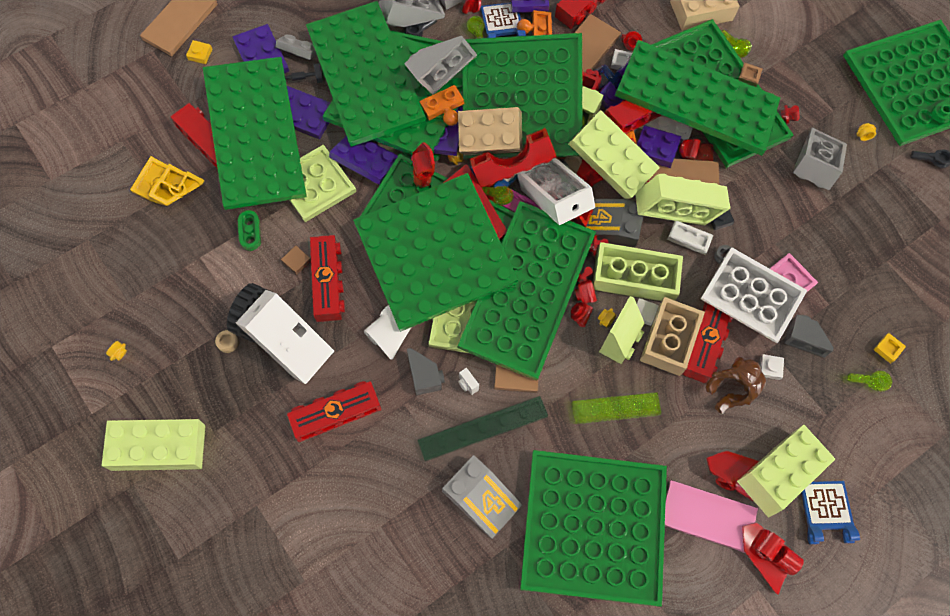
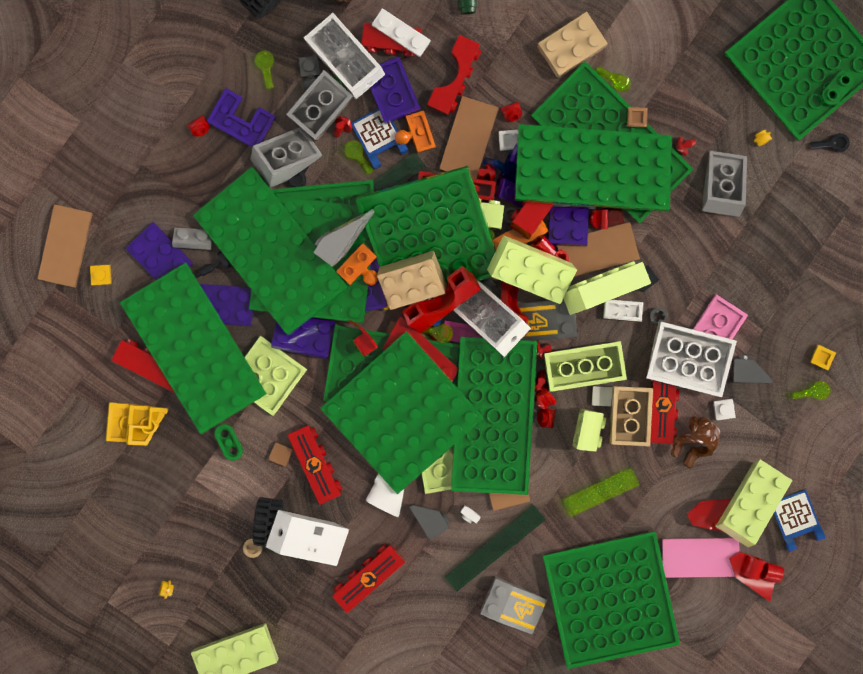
camera: 15 degrees left, 20 degrees up
(607, 317) = (570, 414): yellow plate -> none

